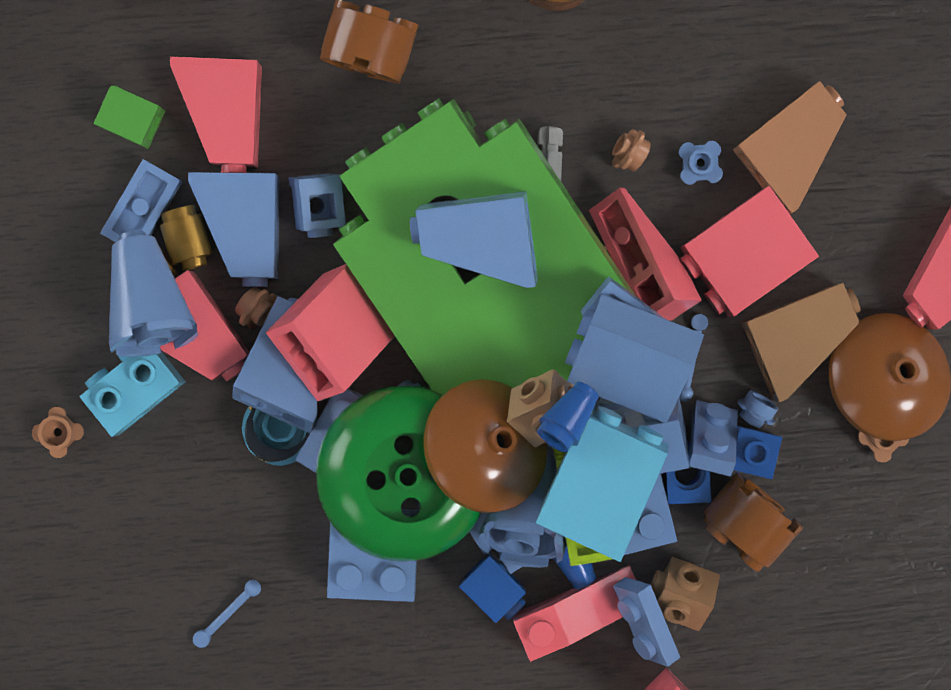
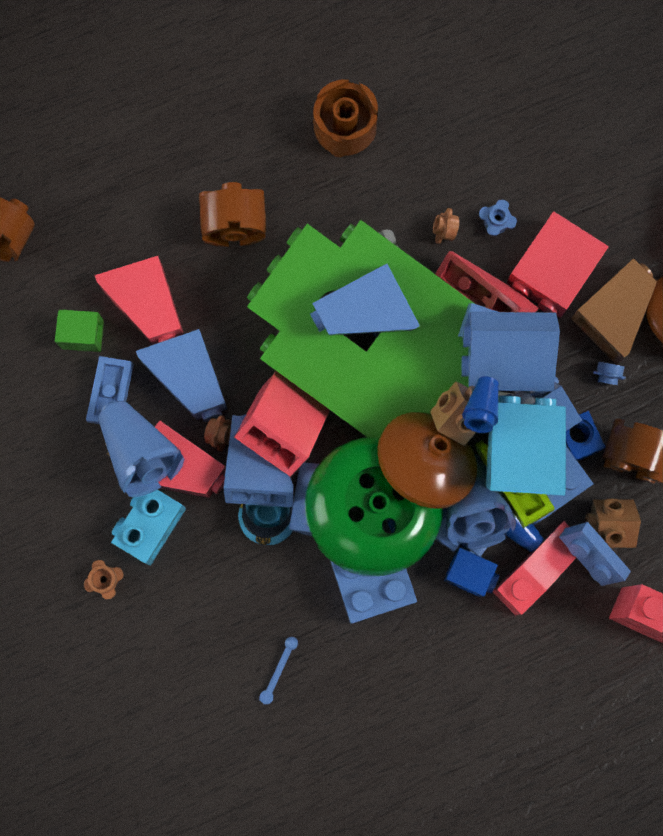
camera: 20 degrees left, 10 degrees down
(185, 237) = (150, 400): pearl gold brick -> none
(328, 191) = (239, 331): medium blue brick -> none
(713, 438) = (589, 400): medium blue plate -> none
(756, 452) = (619, 401): blue brick -> none
(794, 144) = (557, 180): nougat slope -> none

